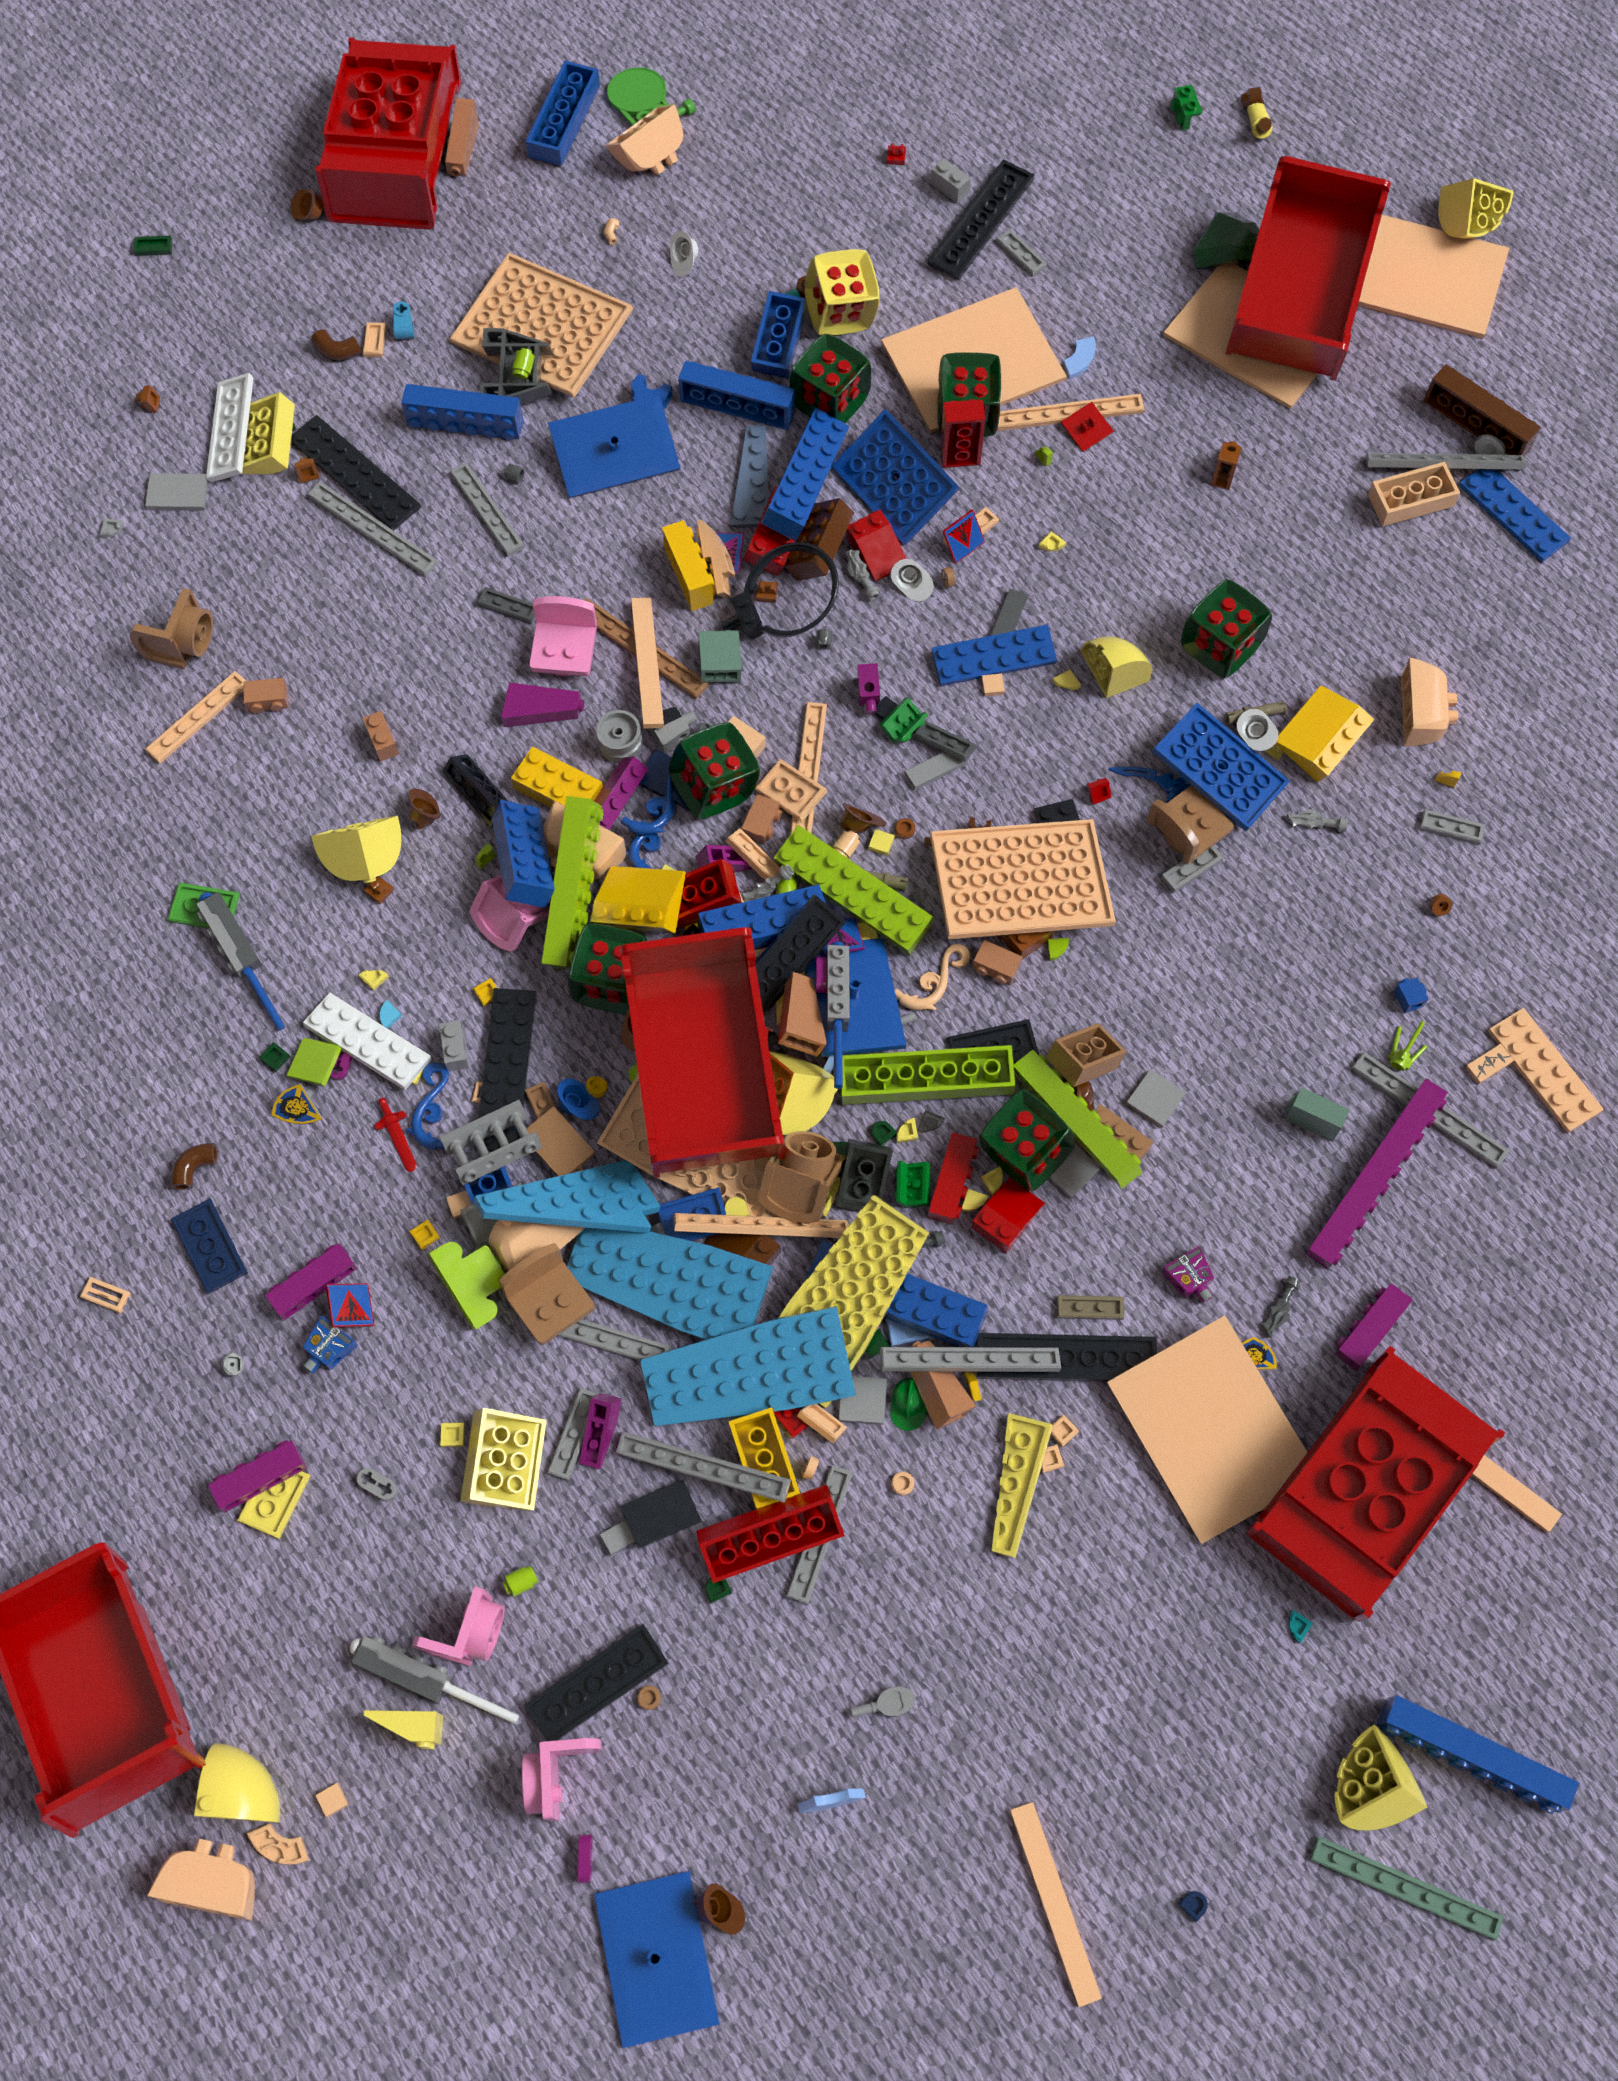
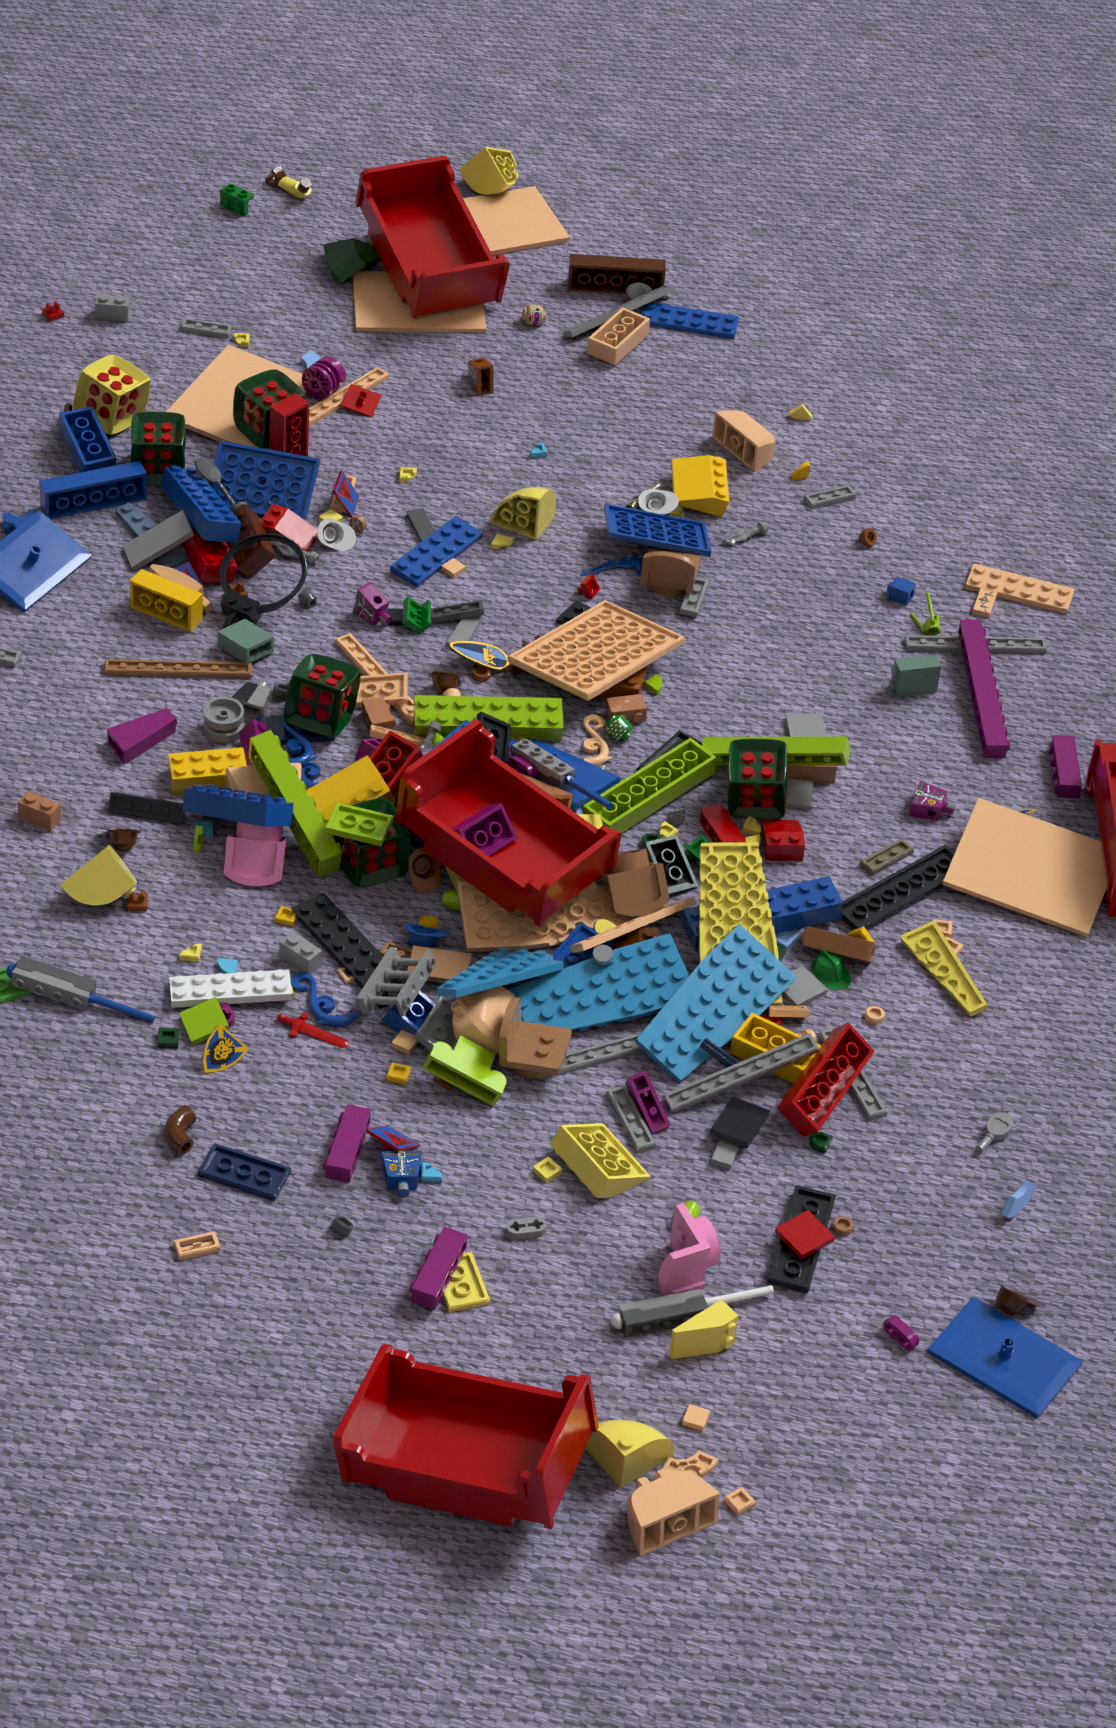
camera: 45 degrees left, 25 degrees down
(287, 1917) = (739, 1501): none -> light nougat tile
(353, 1362) = (430, 1174): none -> medium azure tile
(506, 605) = (48, 693): dark grey tile -> none
(540, 1774) = (834, 1294): bright pink piece -> none
(563, 636) = (119, 680): bright pink piece -> none
(585, 955) = (359, 824): none -> lime plate
(595, 1686) = (804, 1234): none -> red tile
(647, 663) = (197, 669): light nougat tile -> none
(681, 1043) = (487, 829): none -> magenta slope
(689, 1246) = (602, 955): none -> light grey tile
(707, 1431) = (717, 1053): none -> dark blue axle
(741, 490) = (158, 540): none -> light grey tile
(849, 440) = (212, 474): none -> dark grey piece
(881, 842) = (473, 688): light yellow tile -> none
(919, 808) = (480, 654): none -> shield
(931, 554) = (330, 514): none -> light yellow tile
(967, 981) = (618, 728): none -> green head
(970, 1359) = (848, 913): light grey tile -> none
(980, 219) = (157, 321): black plate -> none
(1043, 285) = (241, 339): none -> light yellow tile
(1045, 455) = (349, 428): lime tile -> none
(1066, 381) = (323, 377): none -> magenta wheel
(1086, 1054) = (741, 719): medium nougat brick -> none
(1202, 590) = (539, 451): none -> medium azure tile
(1226, 628) = (581, 455): dark green piece -> none
(1279, 1312) = (1002, 792): dark grey piece -> none
(1353, 416) = (533, 315): none -> tan head
(1520, 702) = (800, 413): none -> light yellow tile

